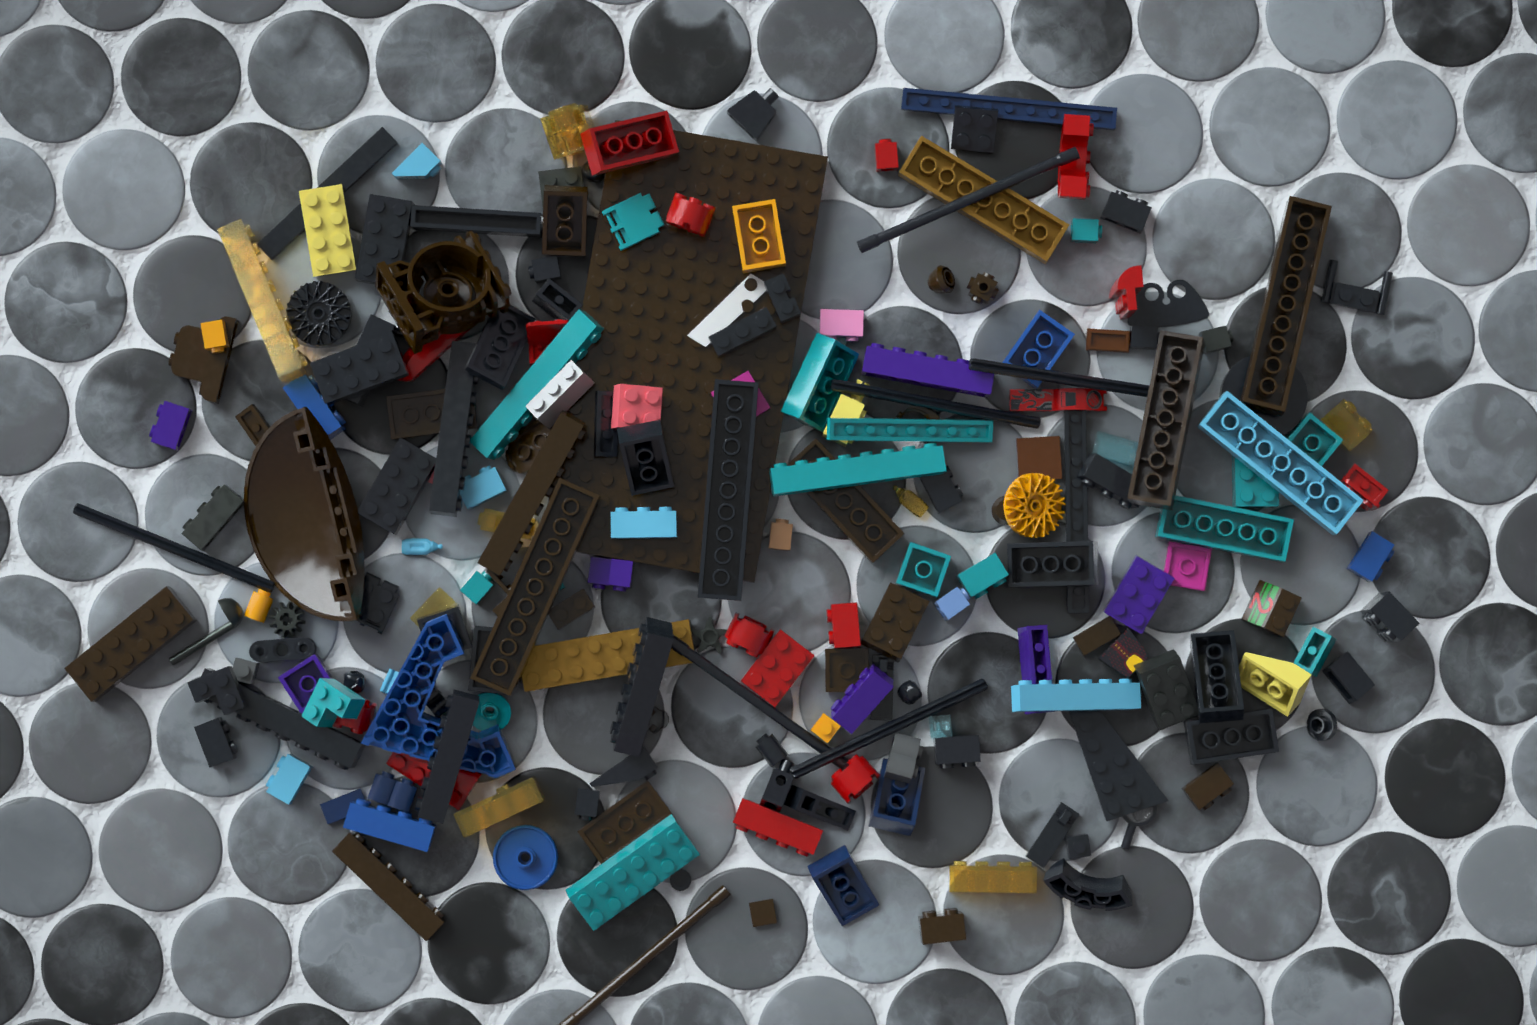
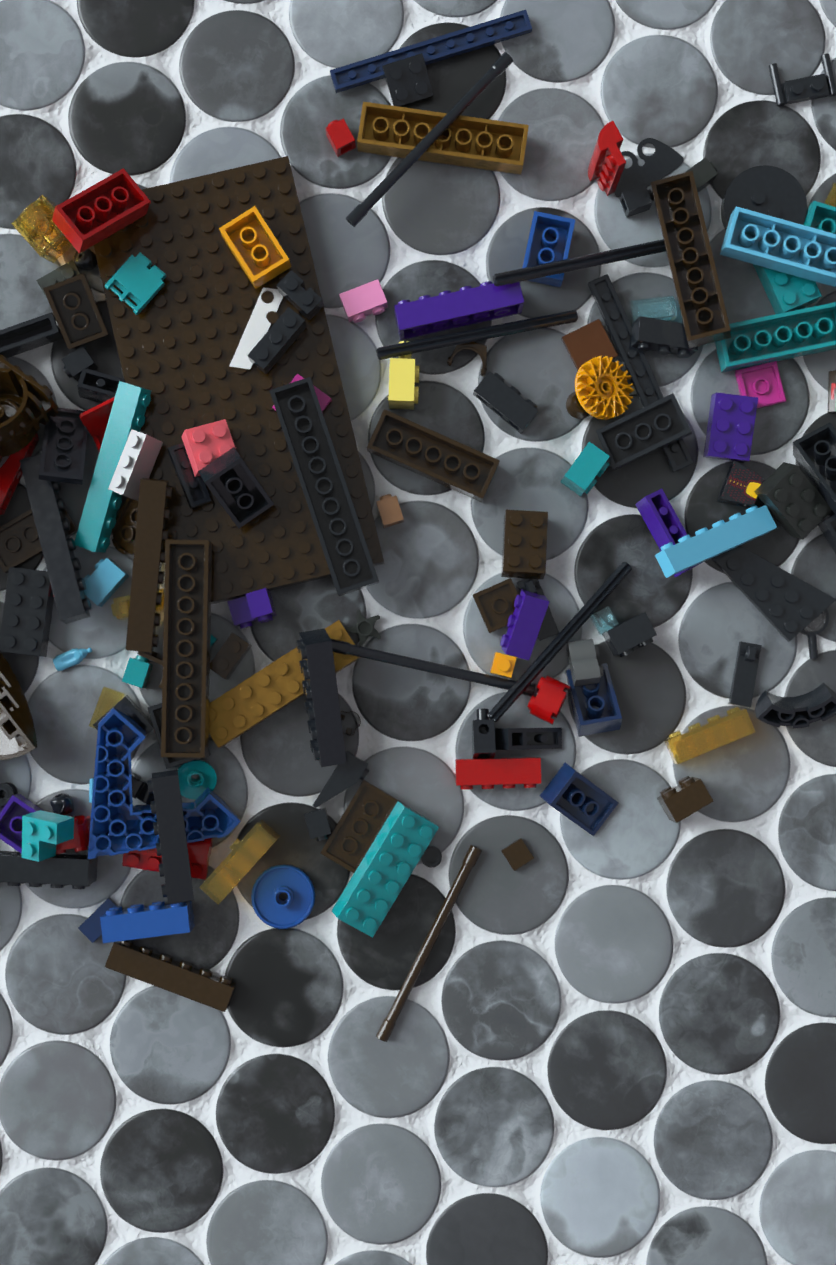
camera: 25 degrees left, 0 degrees up
(288, 779) = (39, 917): medium azure brick -> none
(377, 602) = (52, 724): black plate -> none
(393, 792) = (138, 889): dark blue brick -> none
(643, 523) = (261, 550): medium azure brick -> none
(690, 214) = (184, 254): red brick -> none
(748, 634) = (398, 610): red brick -> none
(754, 112) = (206, 147): black torso -> none
(770, 749) = (462, 705): black brick -> none
(777, 668) = (437, 629): red brick -> none
(811, 397) = (363, 373): teal brick -> none
(844, 625) = (481, 566): red brick -> none
(857, 471) = (433, 421): teal brick -> none
(909, 430) = (464, 366): teal plate -> none
(909, 692) = (564, 601): black piece -> none
(911, 501) = (493, 432): clear yellow piece -> none
(923, 569) = (530, 486): teal brick -> none
(941, 280) = (435, 225): dark brown cone -> none
(952, 603) = (569, 504): medium blue brick -> none
(978, 295) = (475, 223): dark brown brick -> none
(1056, 399) = (582, 288): piece -> none
(1073, 176) = (512, 83): red brick -> none
(1077, 846) = (773, 674): black brick -> none
(1085, 230) = (544, 129): teal brick -> none
(1096, 635) = (707, 481): dark brown tile -> none
(1107, 340) = (605, 218): reddish brown tile -> none
(1126, 212) = (573, 97): black brick -> none
(1285, 306) = (751, 115): dark brown brick -> none

